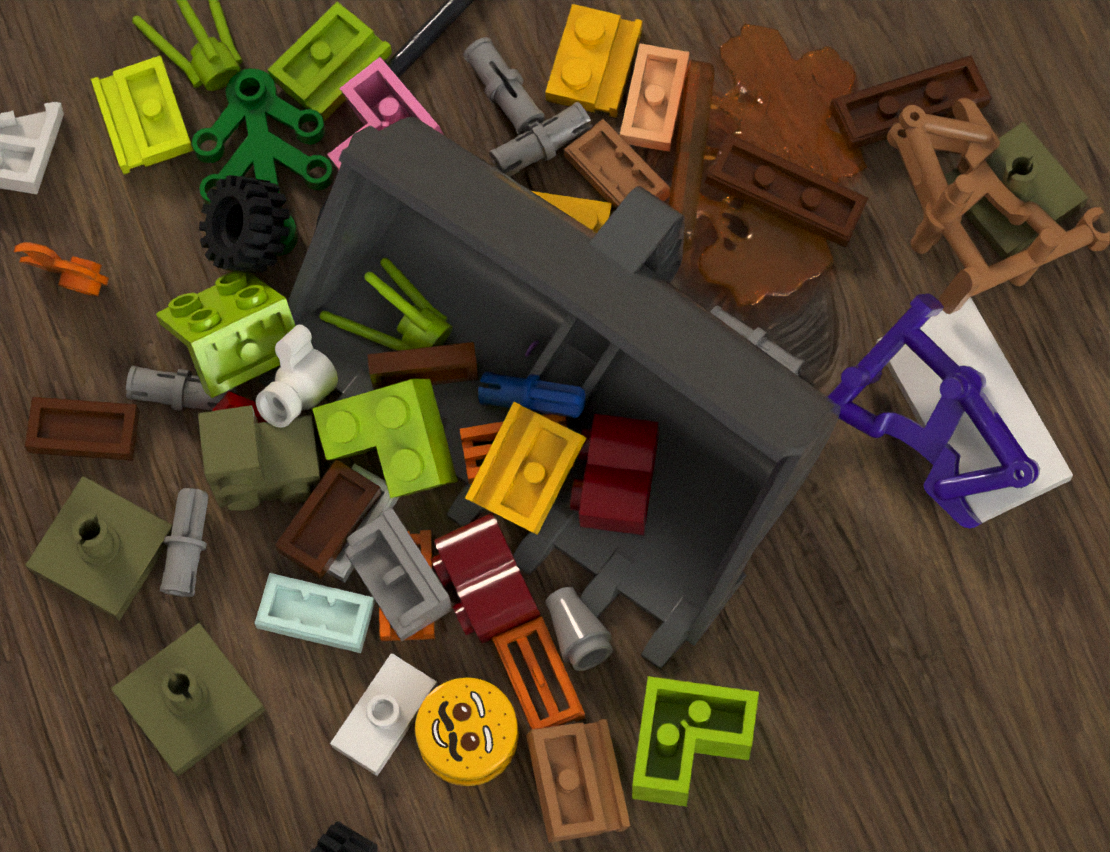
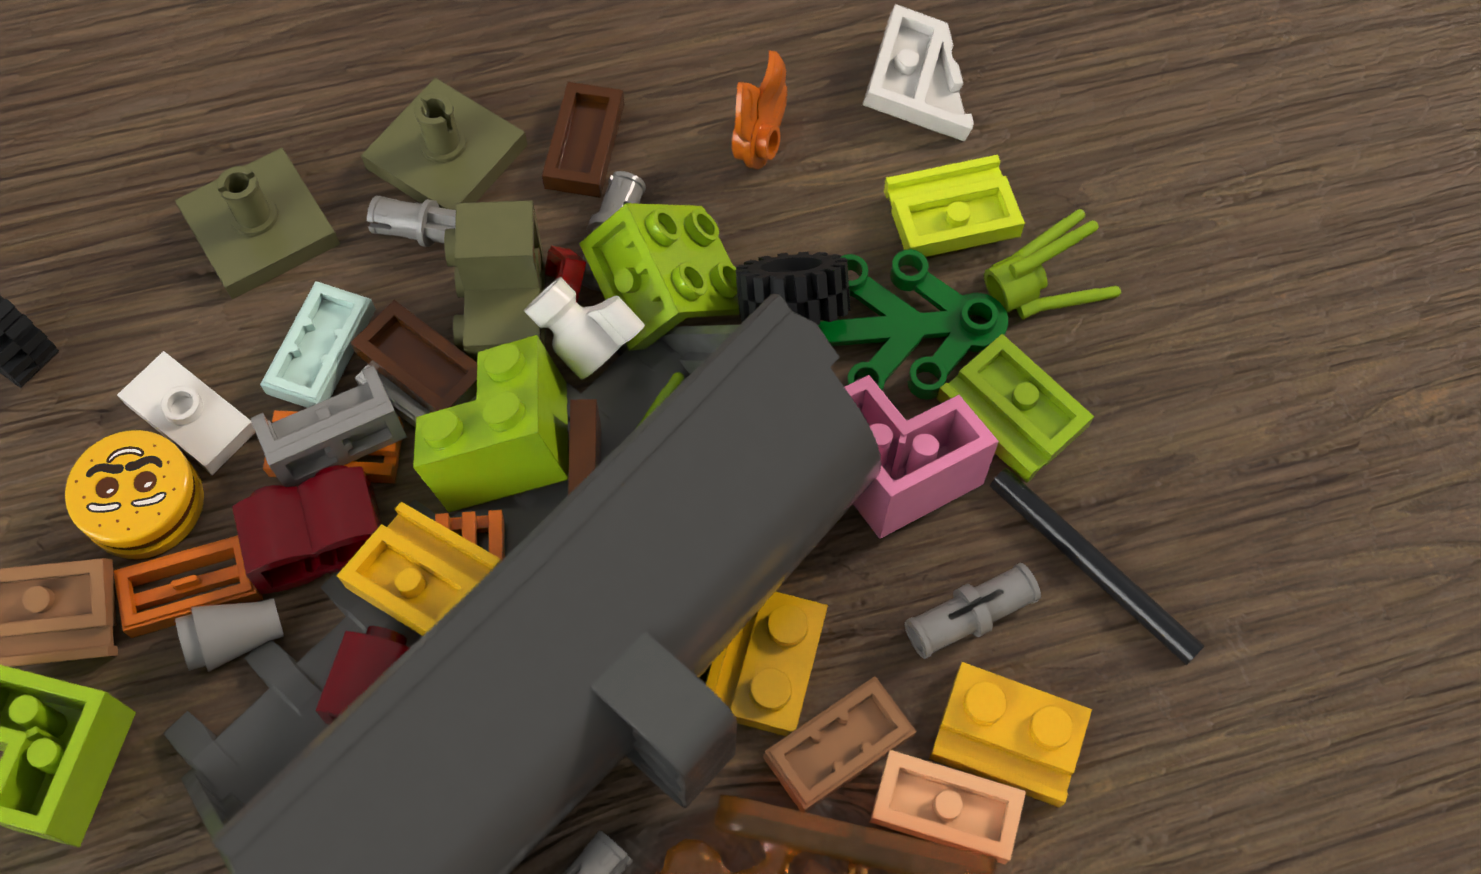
camera: 90 degrees right, 5 degrees down
(541, 140) = (892, 650): light grey pin -> none

